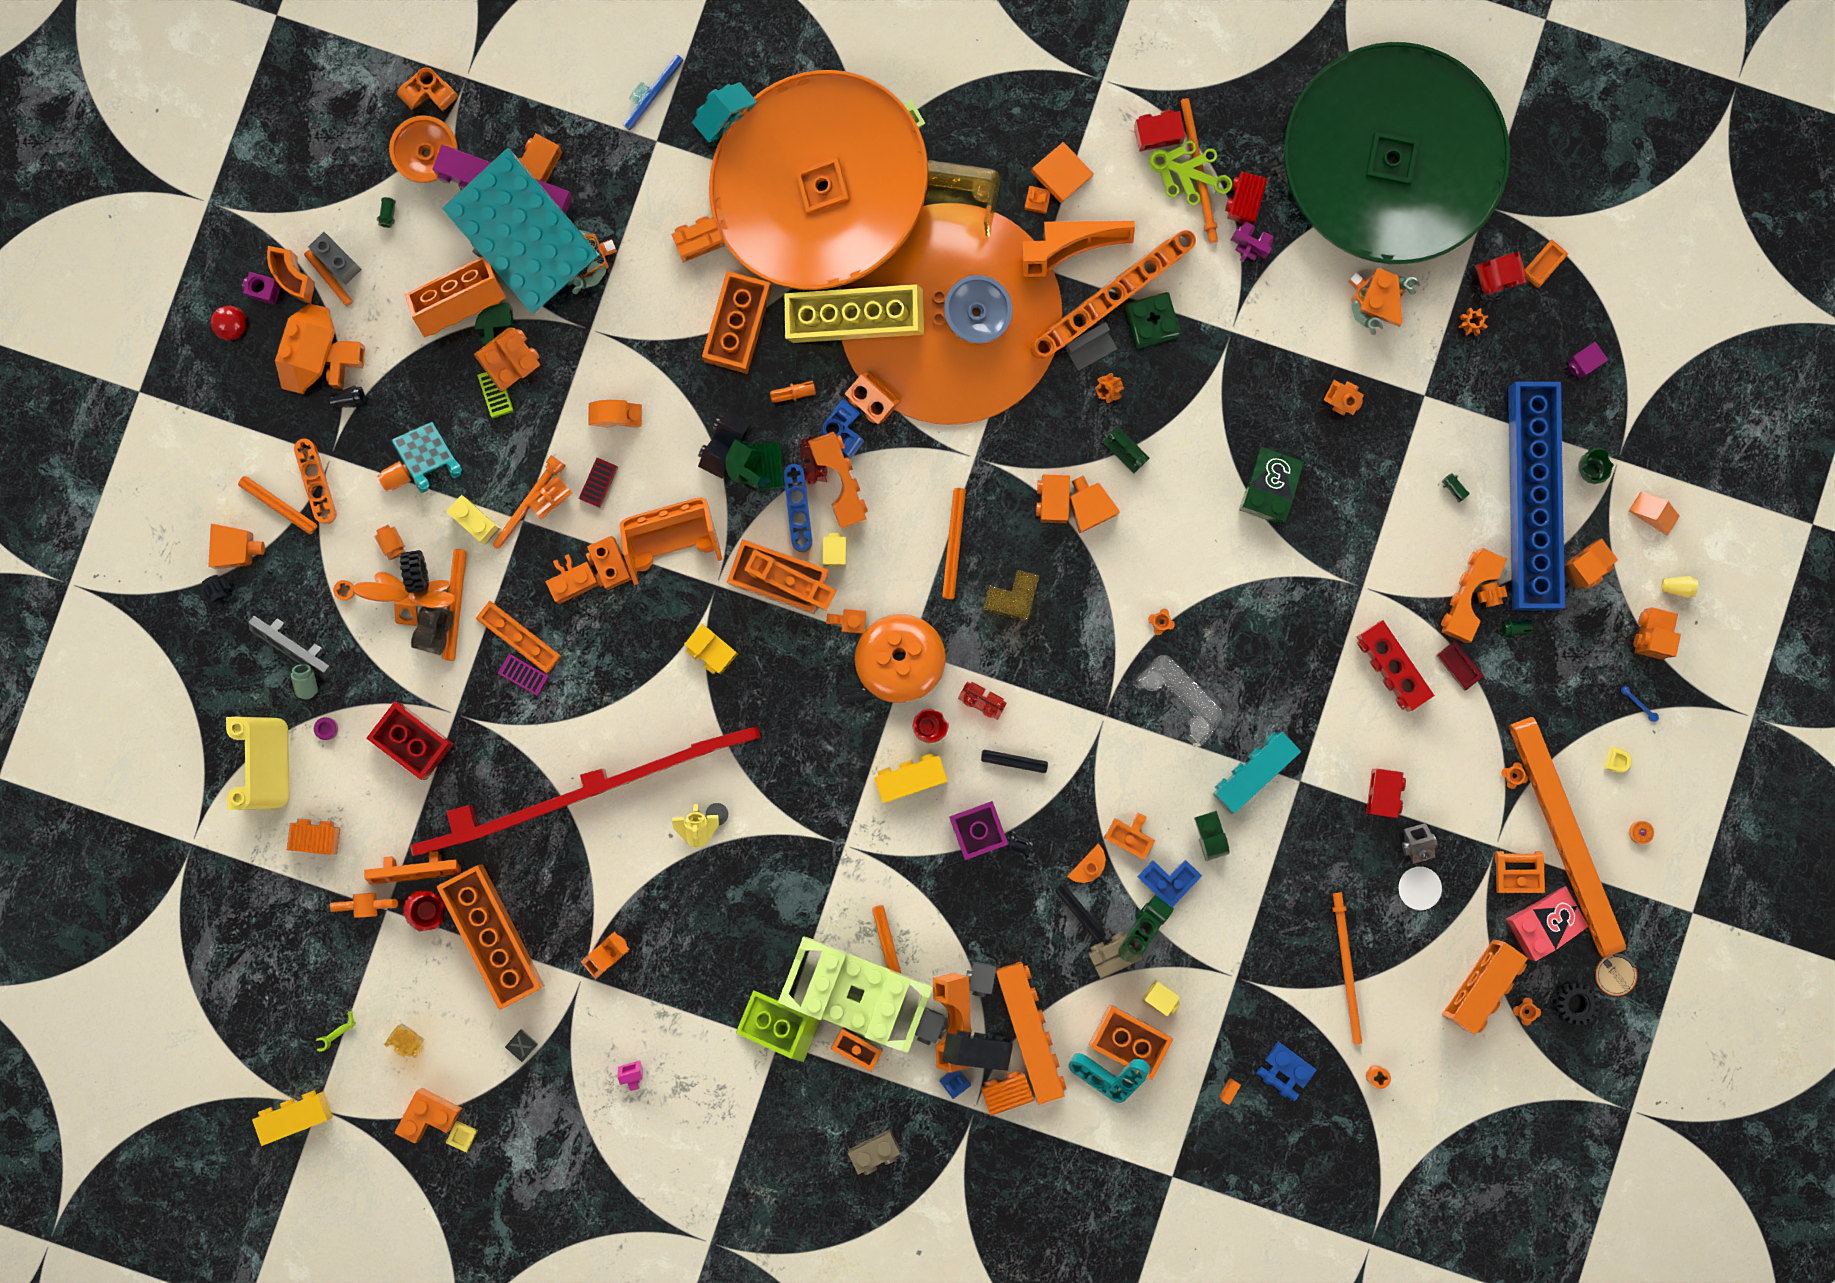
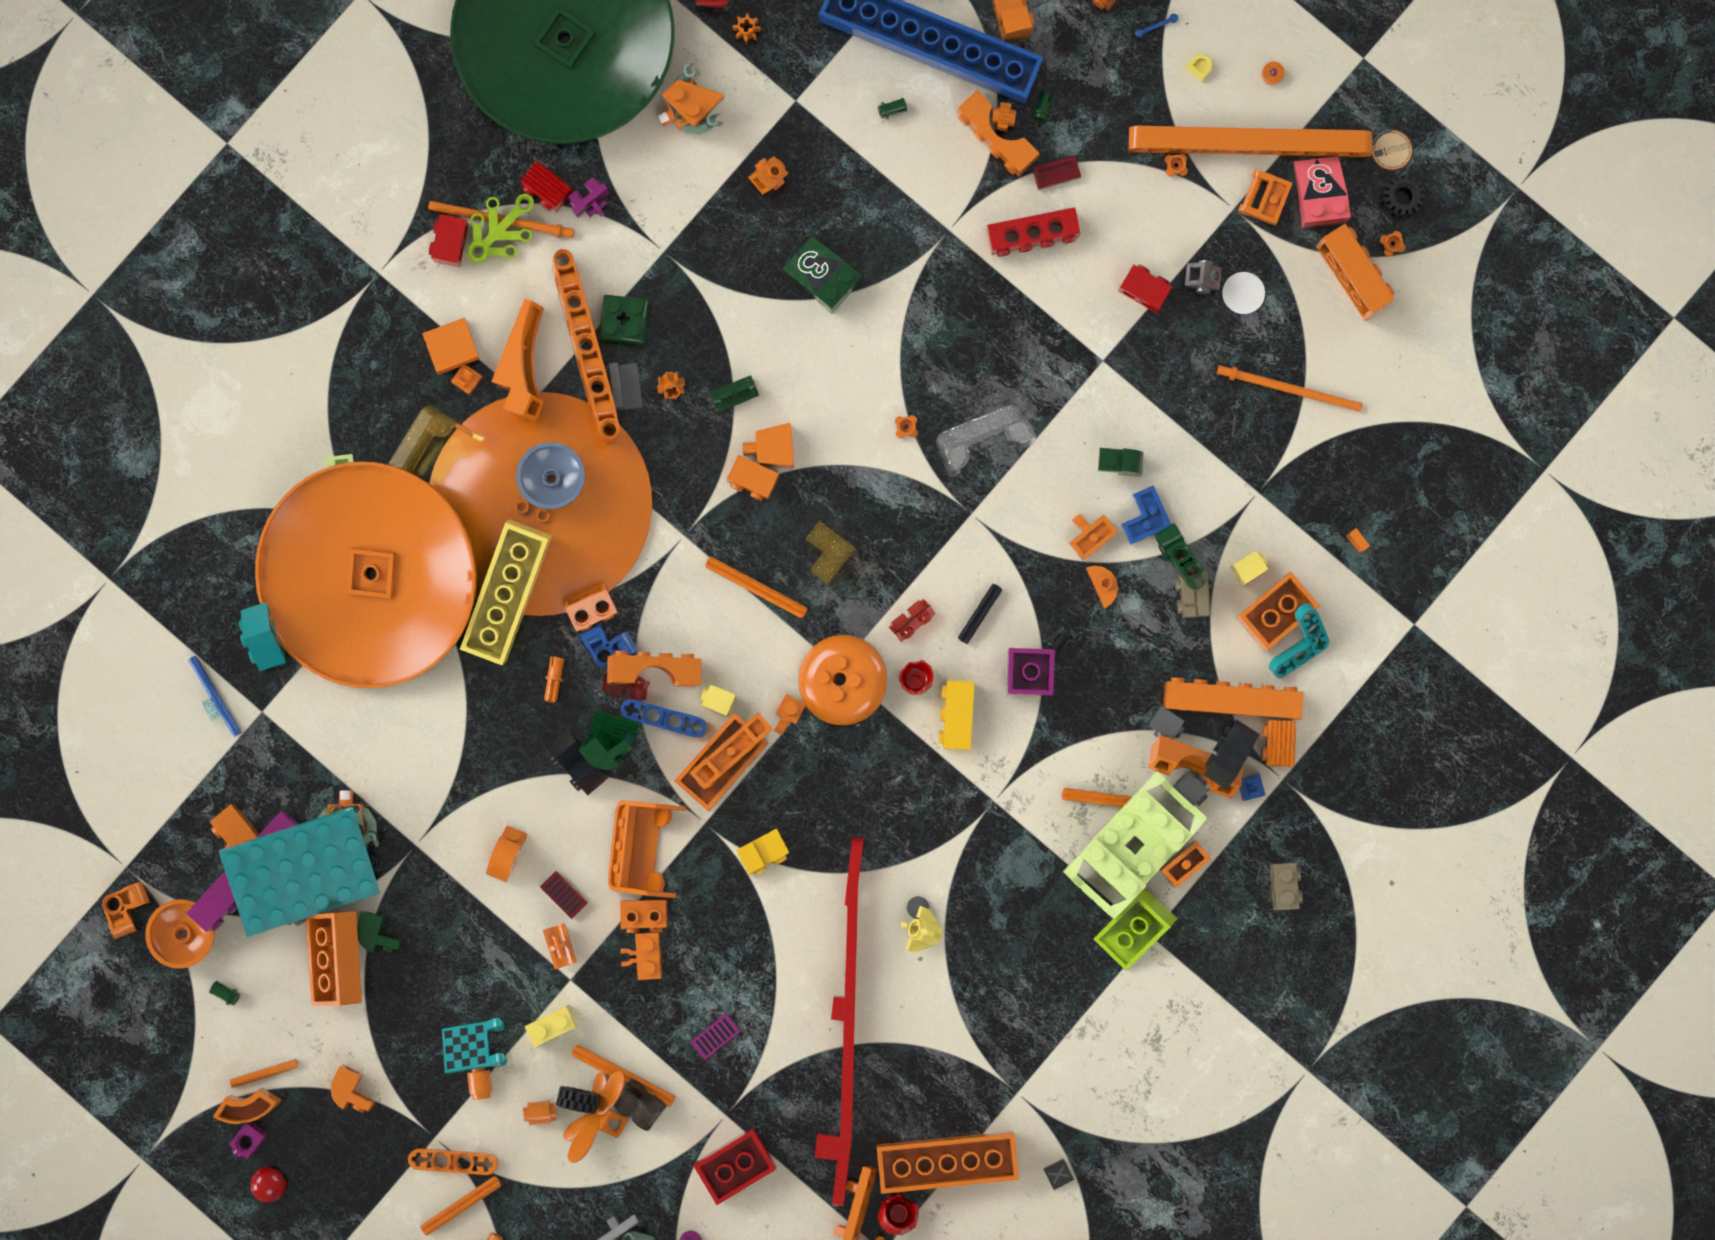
camera: 65 degrees left, 0 degrees up
(304, 348) = (323, 1120): orange wedge -> none
(334, 258) = (248, 1059): dark grey brick -> none
(337, 587) = (562, 1178): orange bush -> none
(348, 398) = (386, 1098): black cone -> none
(497, 401) = (439, 958): lime tile -> none
(507, 358) = (412, 932): orange plate -> none
(518, 637) = (678, 1027): orange tile -> none
(553, 467) = (532, 931): orange piece -> none
(605, 955) = (1007, 1062): orange brick -> none
(630, 1074) = (1126, 1082): dark pink tile -> none
(697, 239) = (373, 710): orange brick -> none
(737, 322) = (467, 704): orange brick -> none
(1080, 912) = (1142, 609): black axle -> none
(1256, 772) = (1079, 397): teal brick -> none
(1290, 1065) = (1356, 476): blue plate -> none
(1383, 1081) = (1404, 398): orange bush -> none

